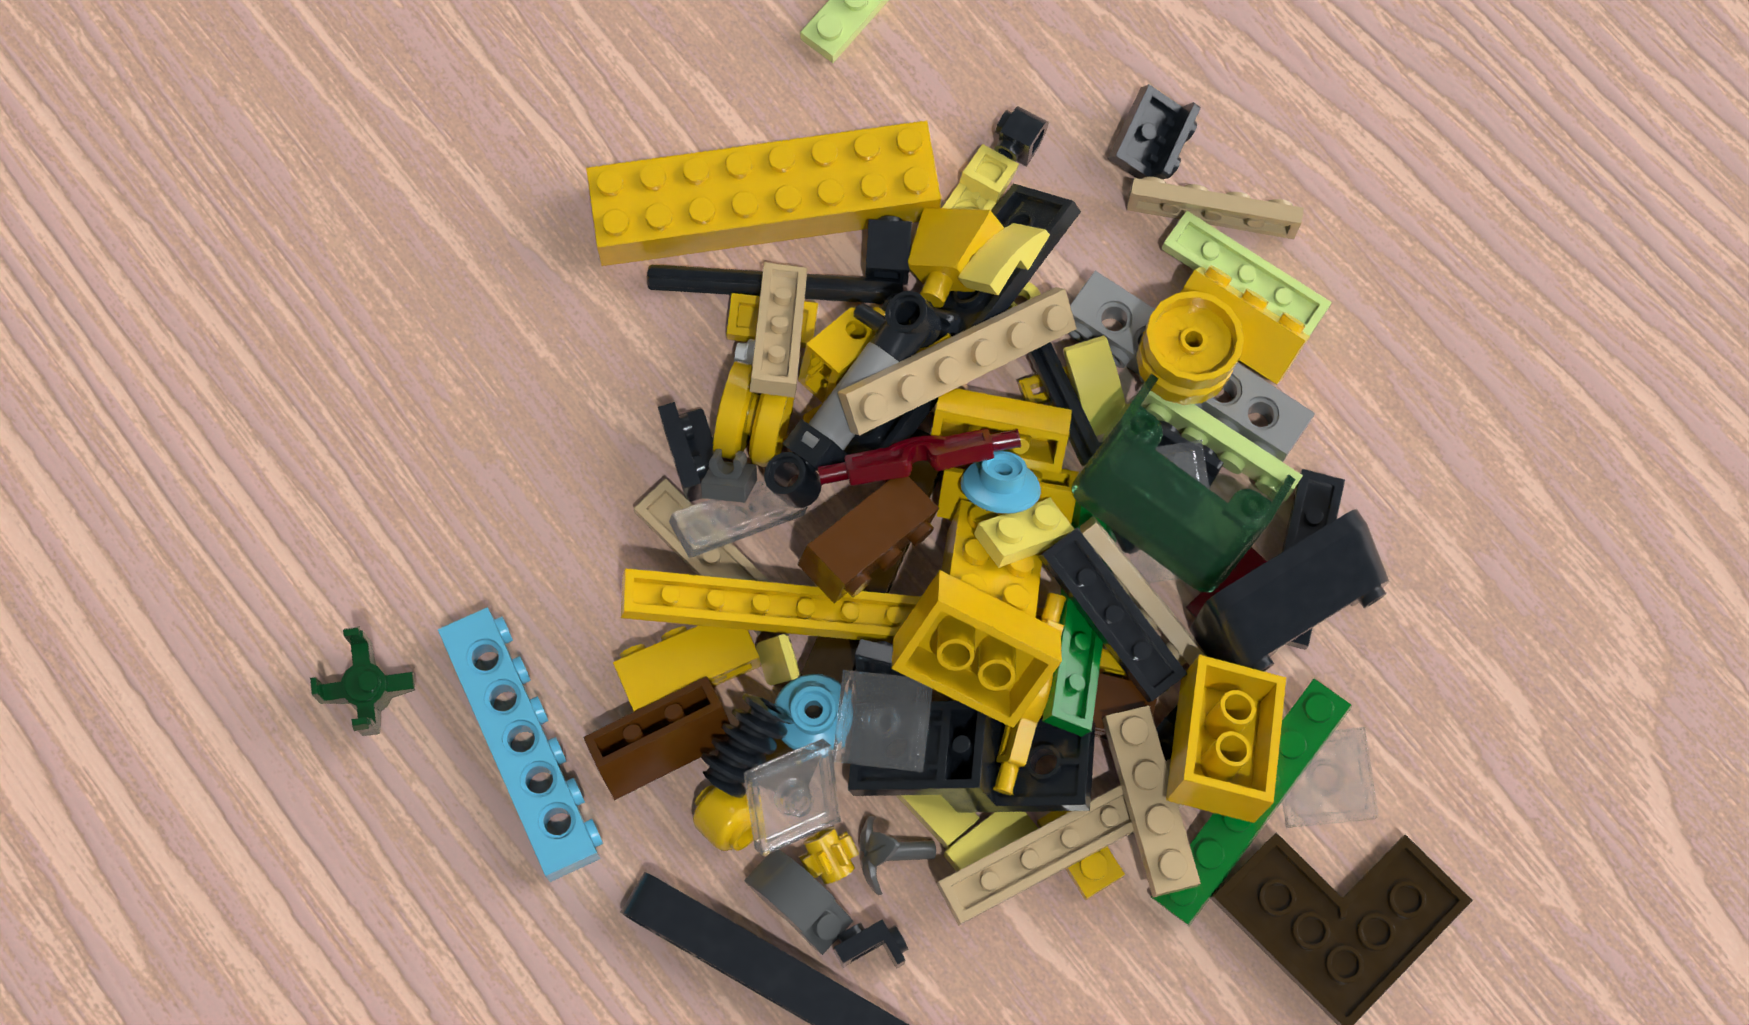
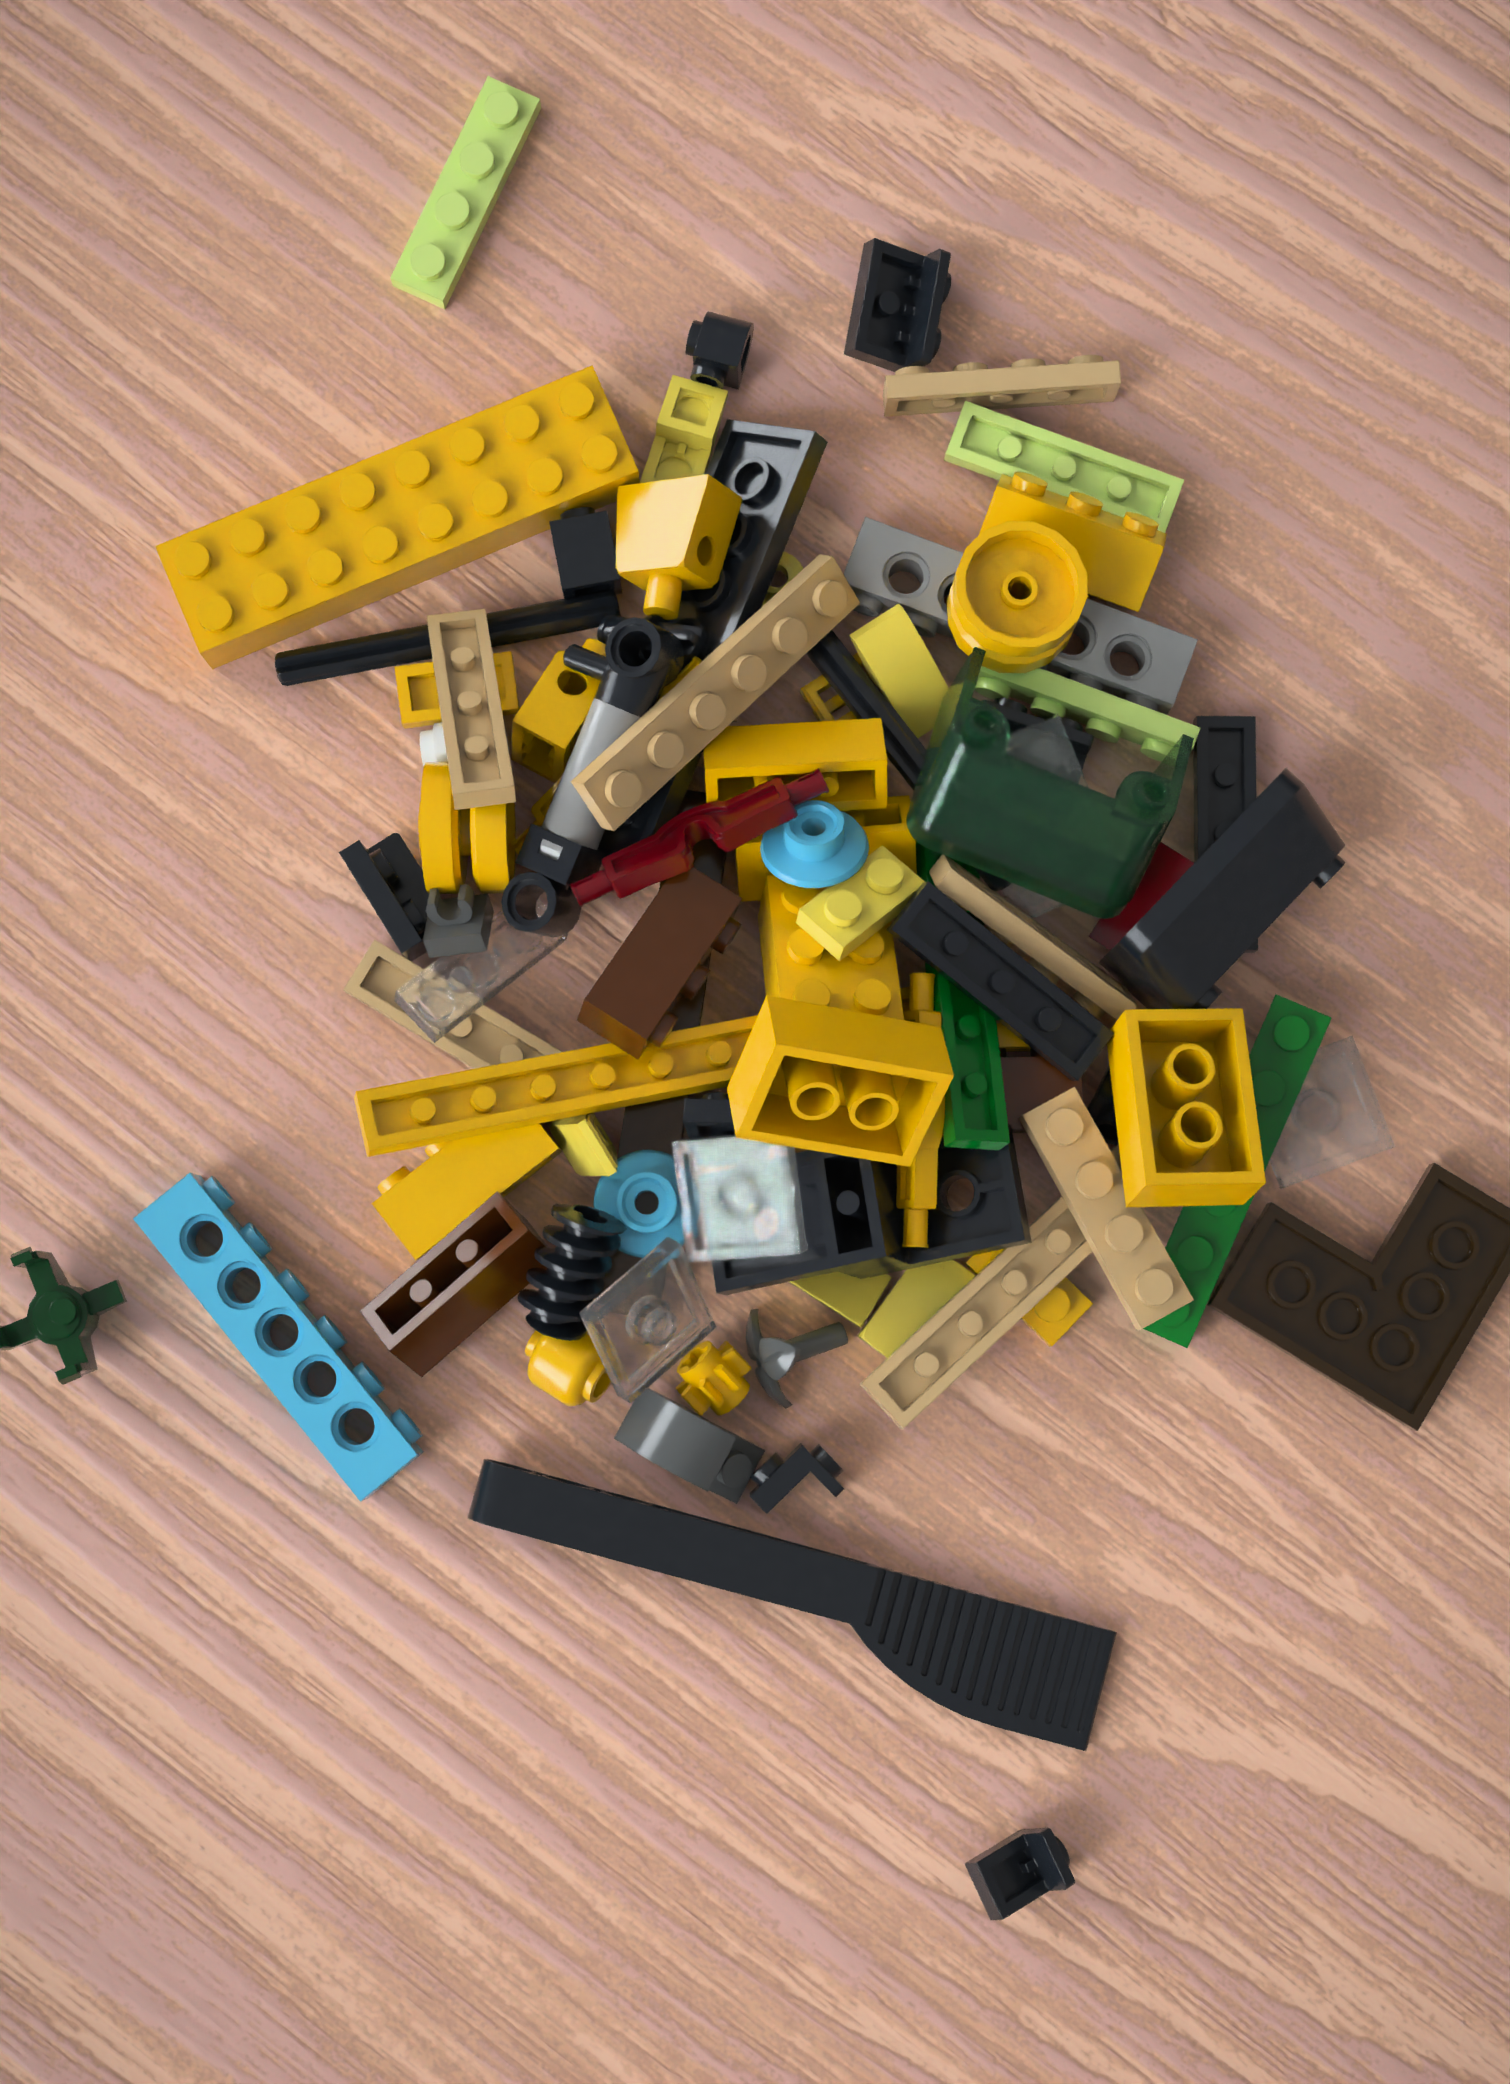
camera: 15 degrees left, 10 degrees up
(999, 256) = (733, 541): light yellow slope -> none

